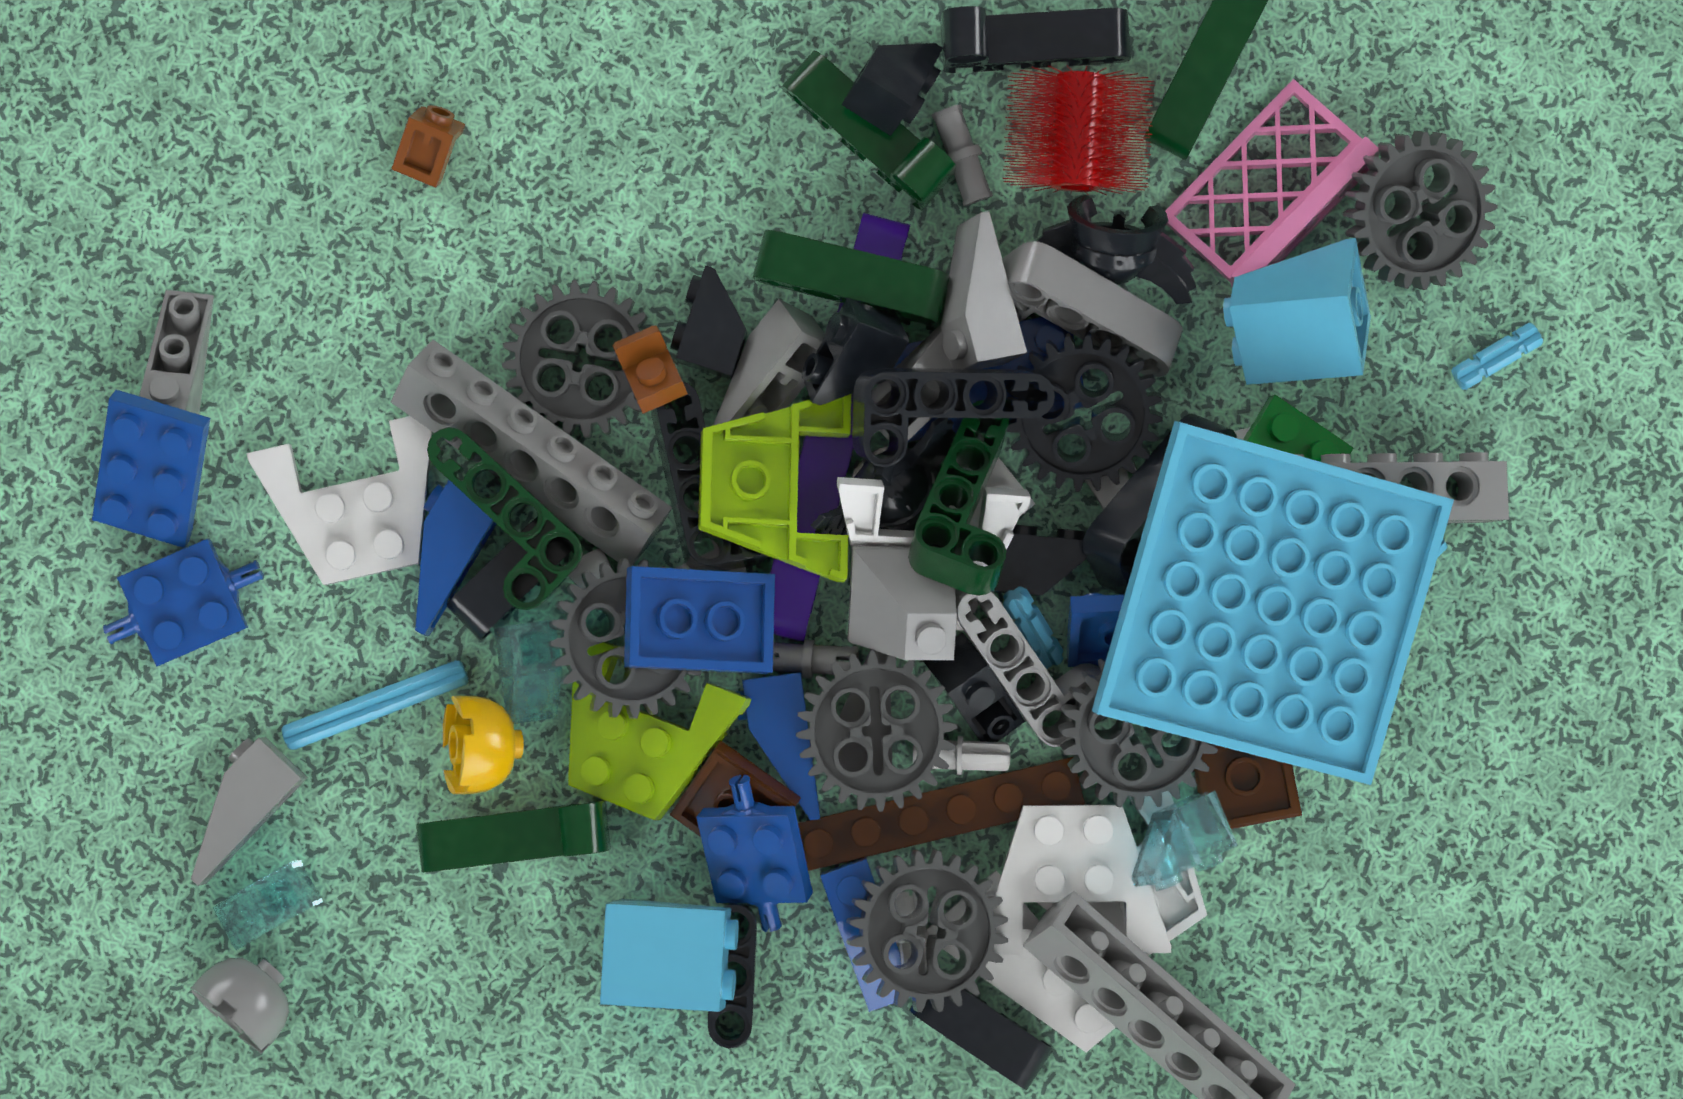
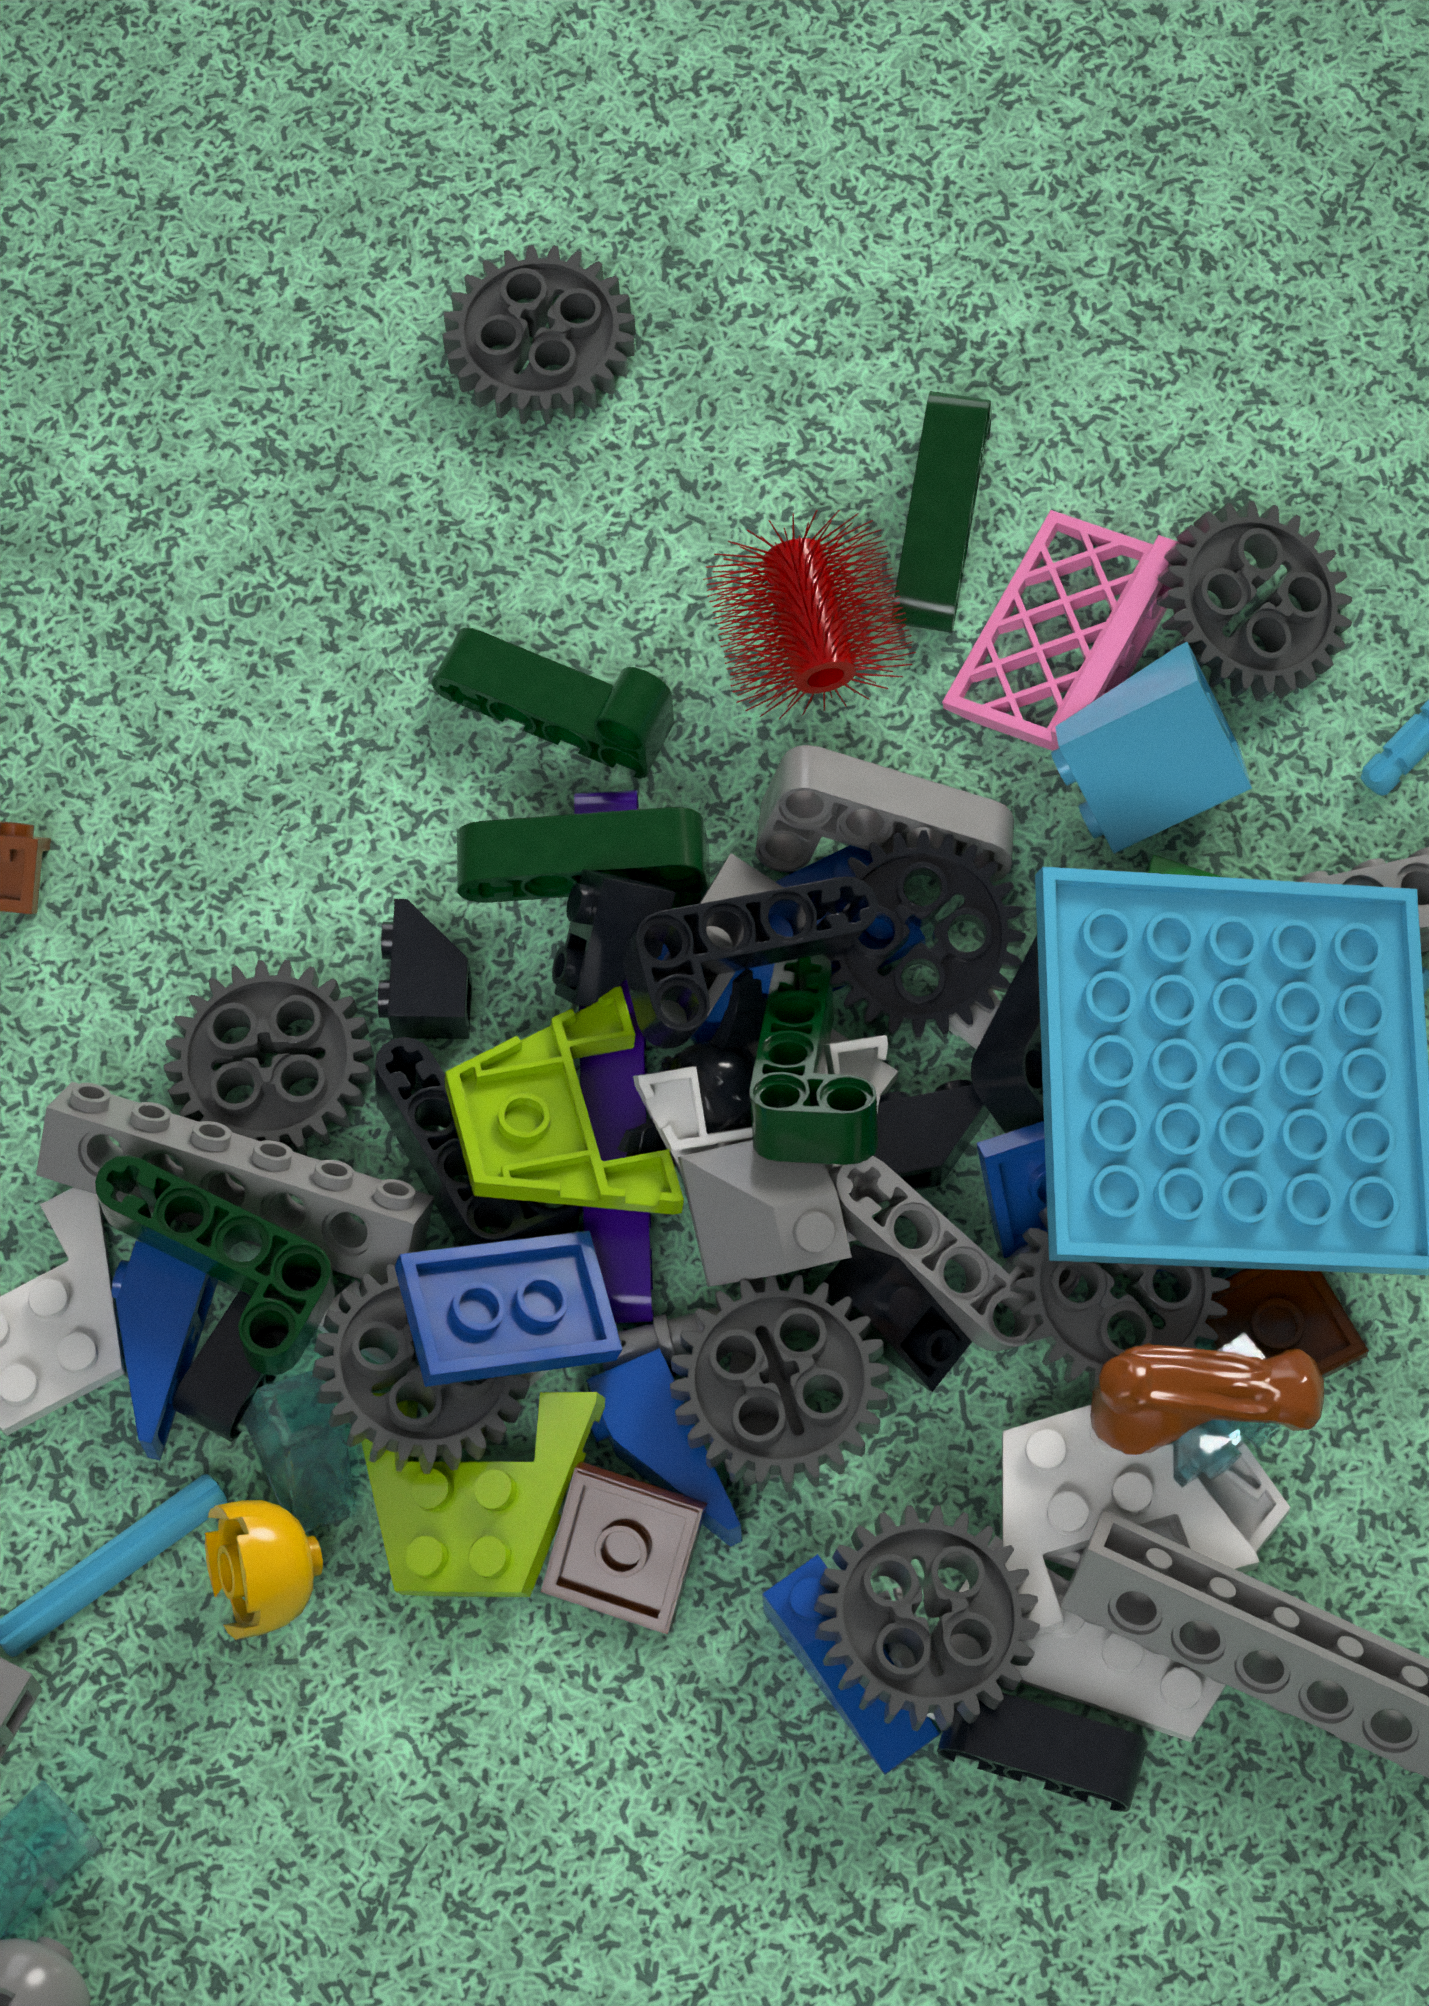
camera: 10 degrees left, 20 degrees down
(513, 836) = (341, 1672): dark green beam -> none
(649, 369) = (356, 1030): dark orange bracket -> none
(667, 955) = (588, 1753): medium azure slope -> none
(744, 994) = (680, 1739): black beam -> none
(755, 854) = (668, 1597): blue plate -> none
(771, 363) = (512, 985): light grey slope -> none
(891, 82) = (566, 630): black slope -> none
(937, 814) = (914, 1474): reddish brown plate -> none
(964, 153) = (690, 714): light grey pin -> none
(975, 756) = (921, 1398): white axle -> none
(979, 308) = (746, 828): light grey slope -> none
(1033, 38) = (670, 564): black beam -> none
(1033, 626) = (921, 1180): medium azure axle -> none
(1123, 250) = (918, 736): black helmet -> none
(1138, 827) = (1163, 1391): none -> dark orange hair

